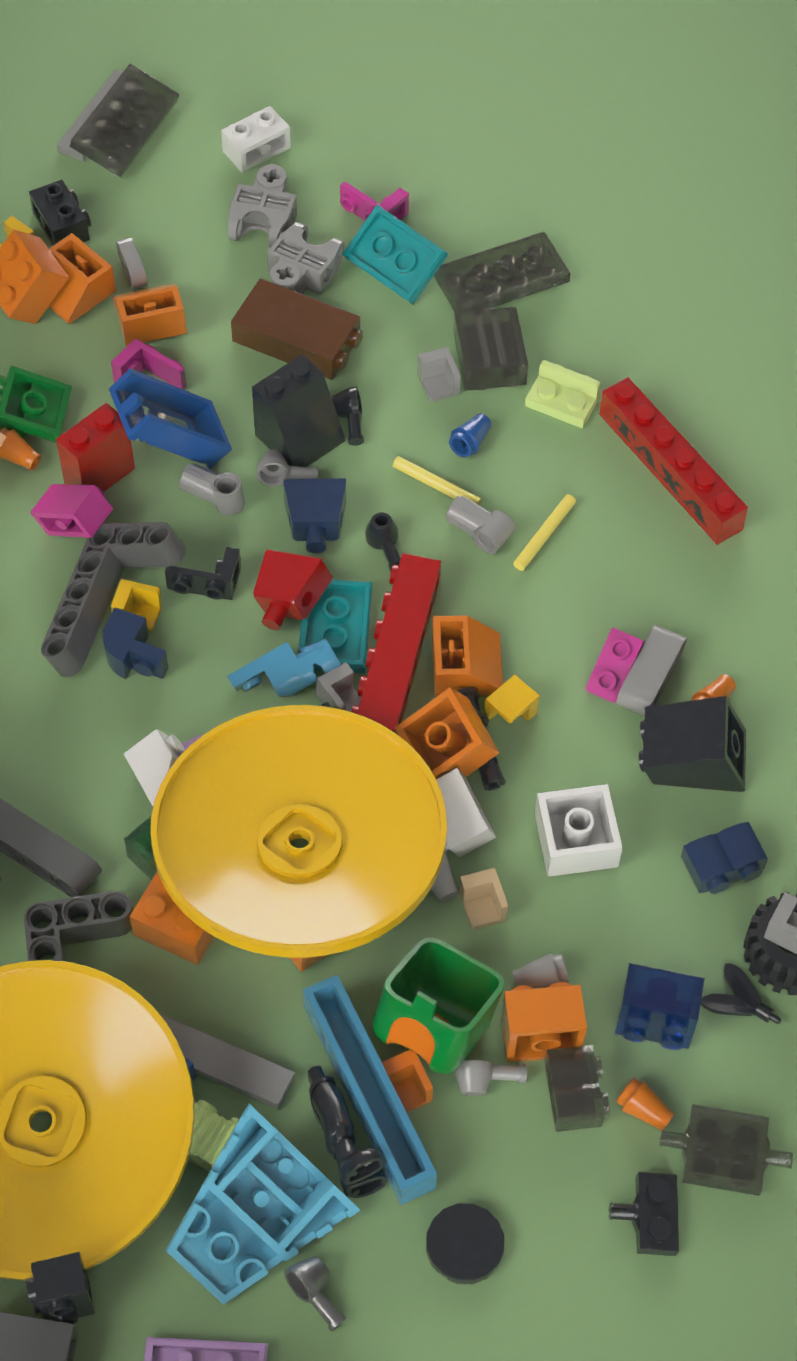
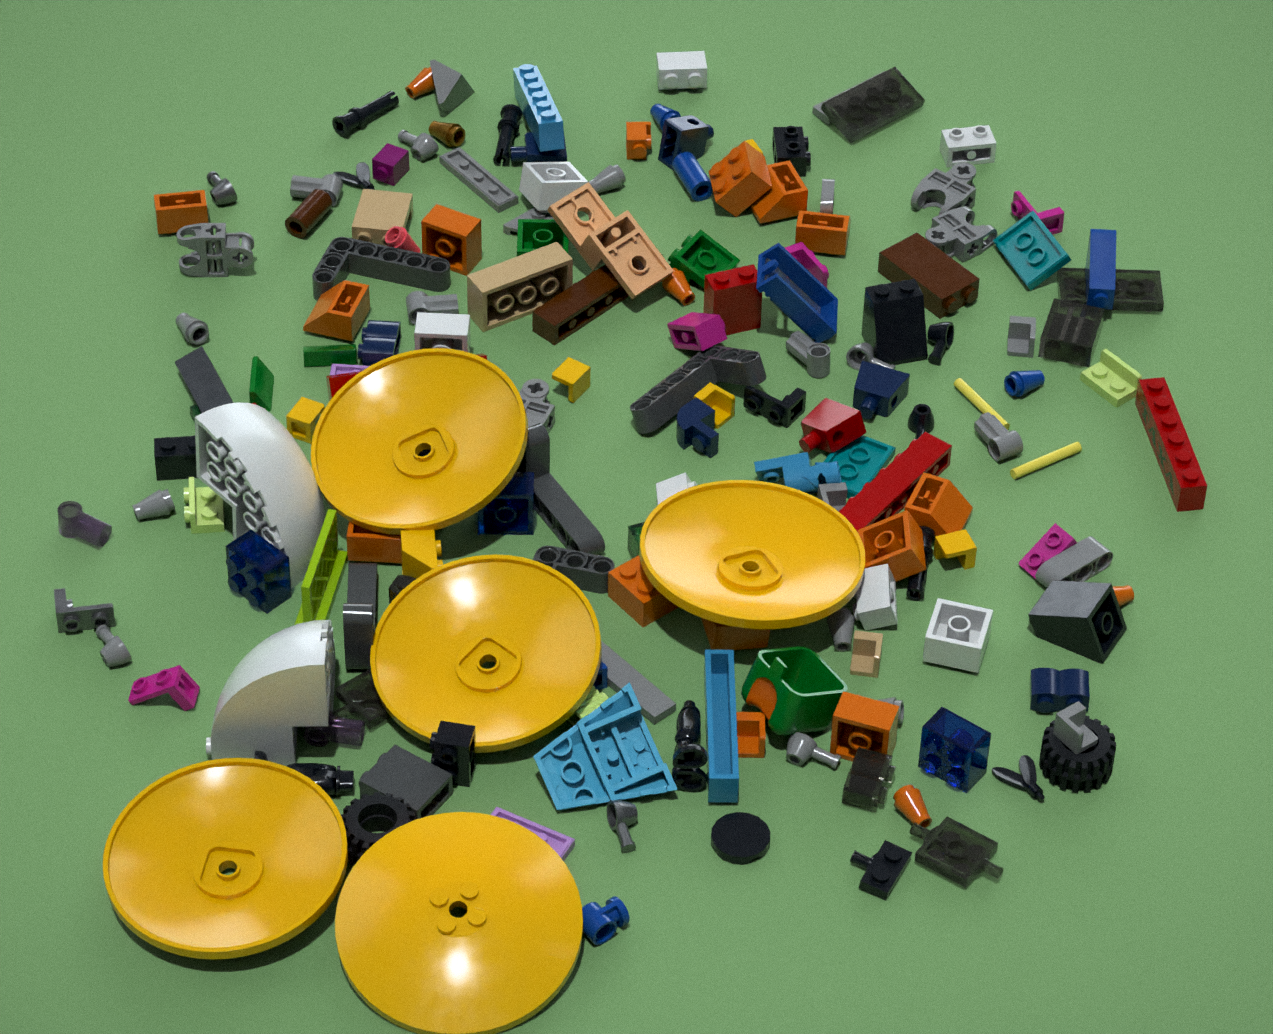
camera: 25 degrees right, 15 degrees down
(491, 259) = (1101, 268): none -> blue slope

